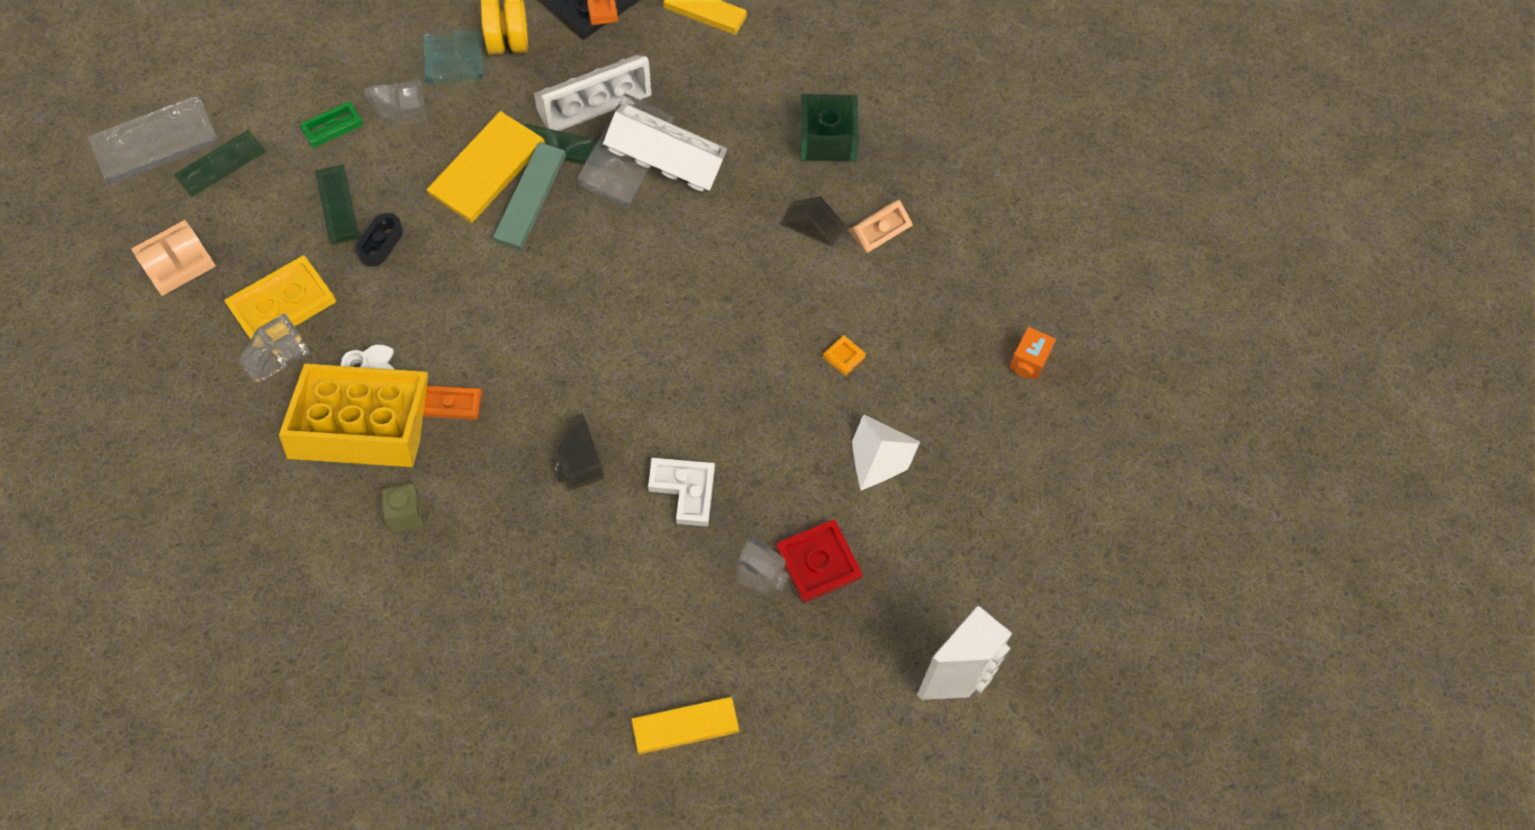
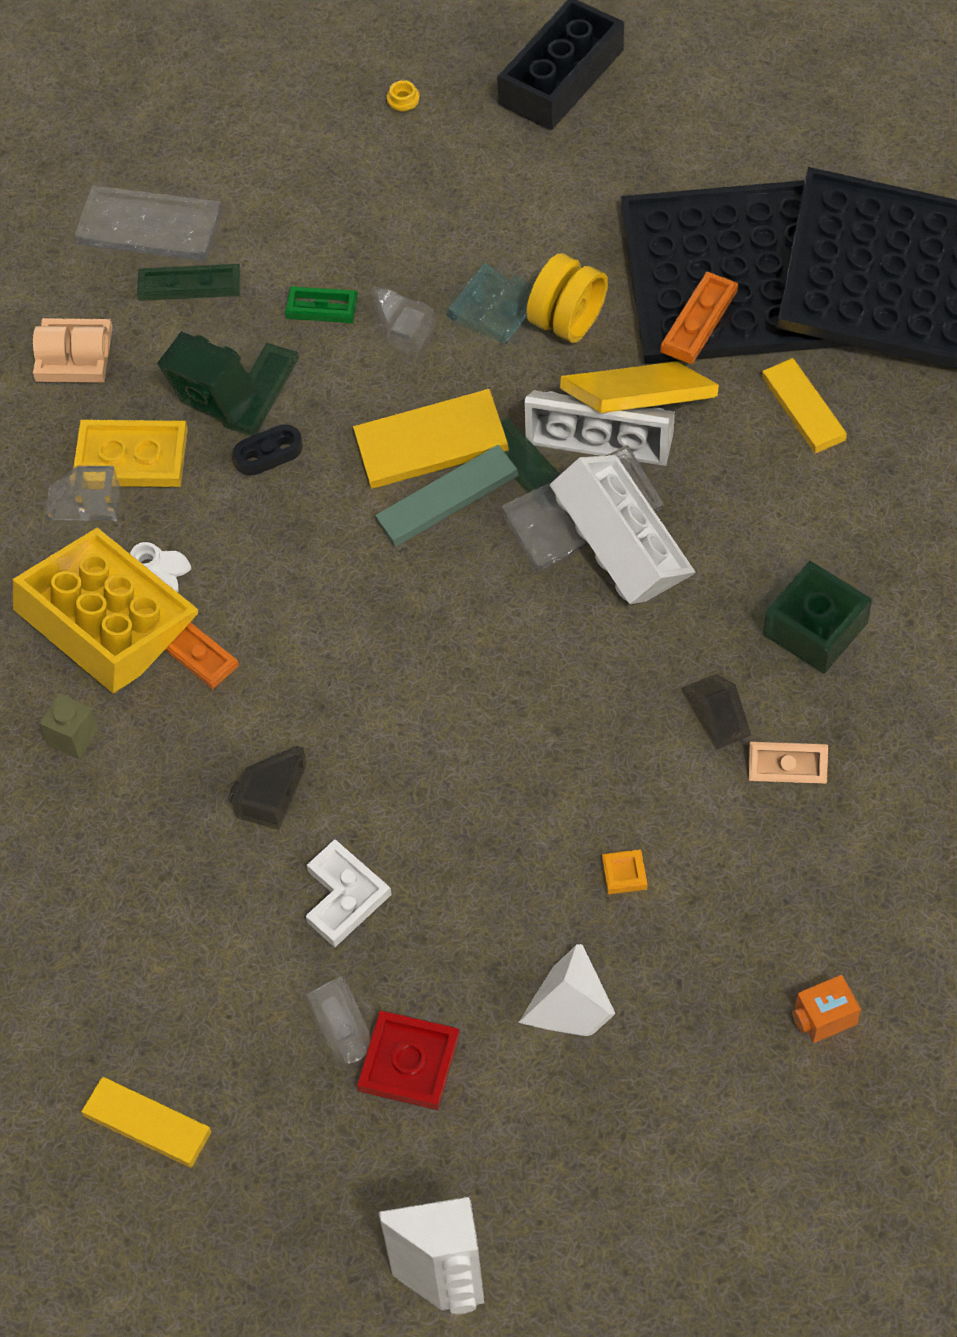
camera: 45 degrees right, 5 degrees down
(300, 214) = (208, 378): none -> clear green brick
(602, 51) = (639, 387): none -> yellow tile

